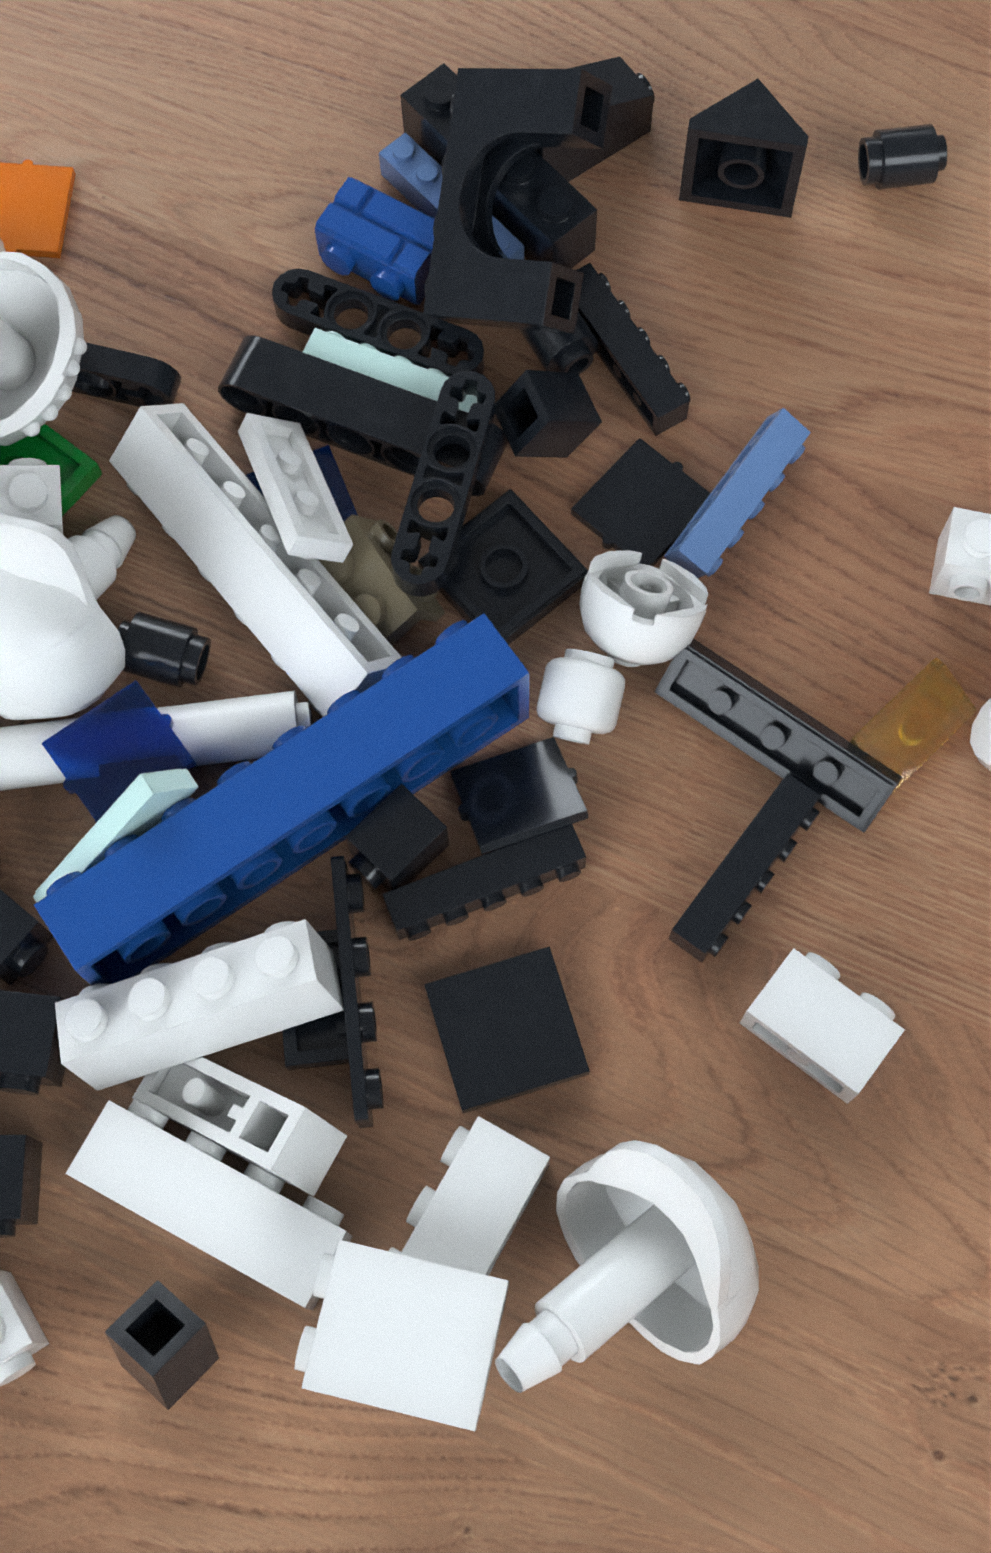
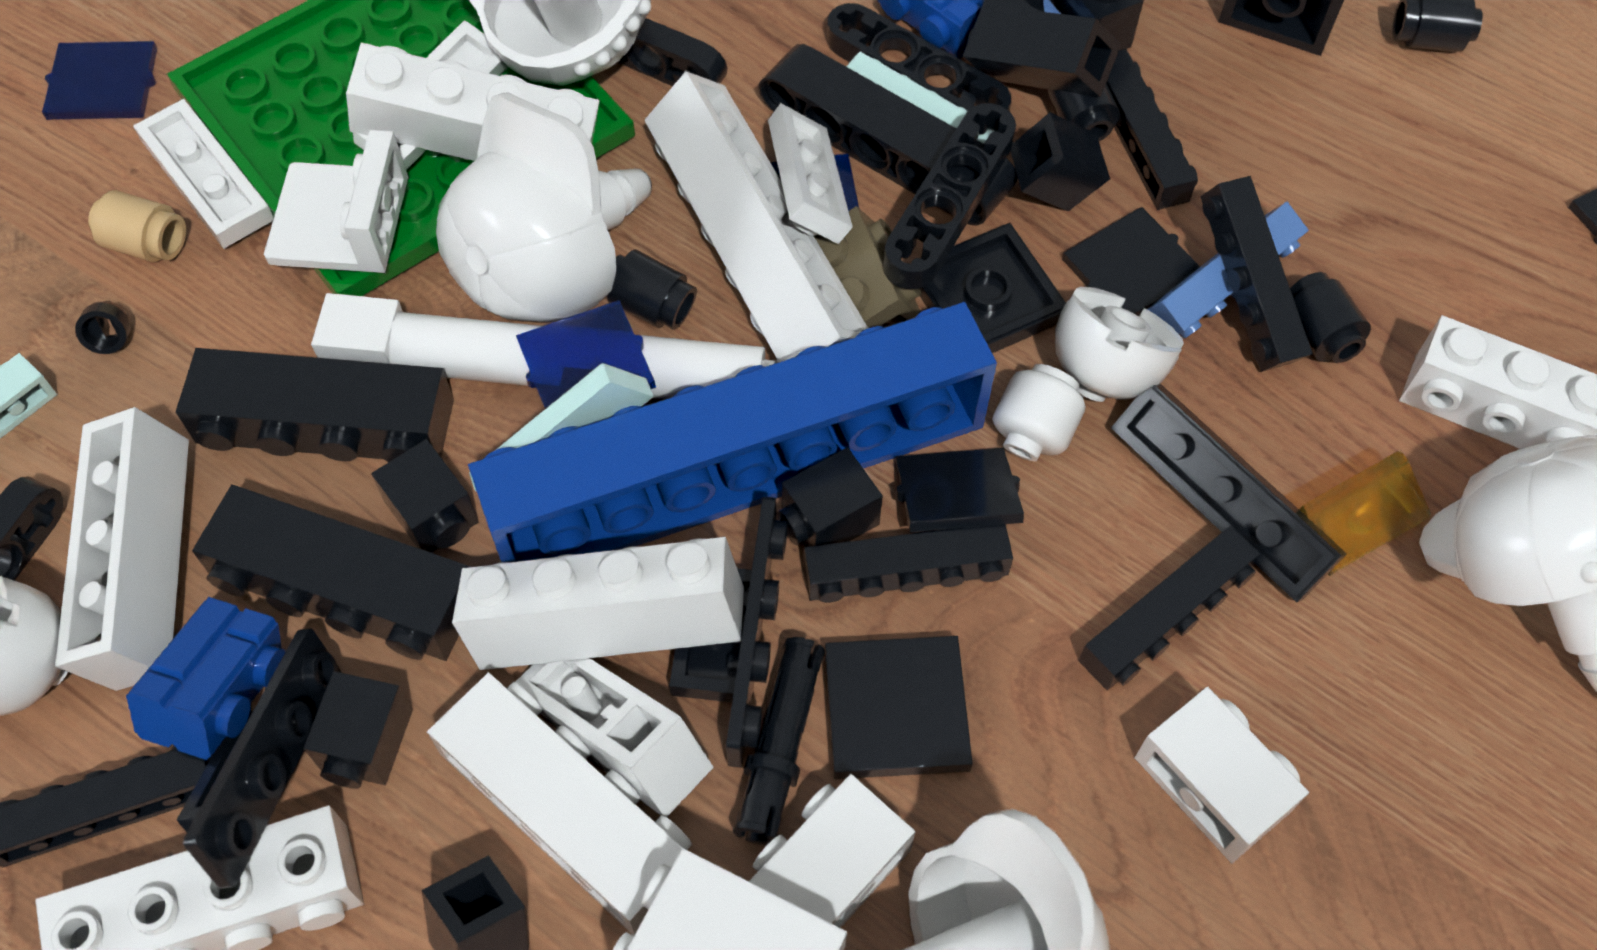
camera: 10 degrees right, 10 degrees down
(403, 1077) = (774, 761): none -> black pin
(765, 498) = (1255, 274): none -> black piece
(844, 525) = (1330, 318): none -> black brick

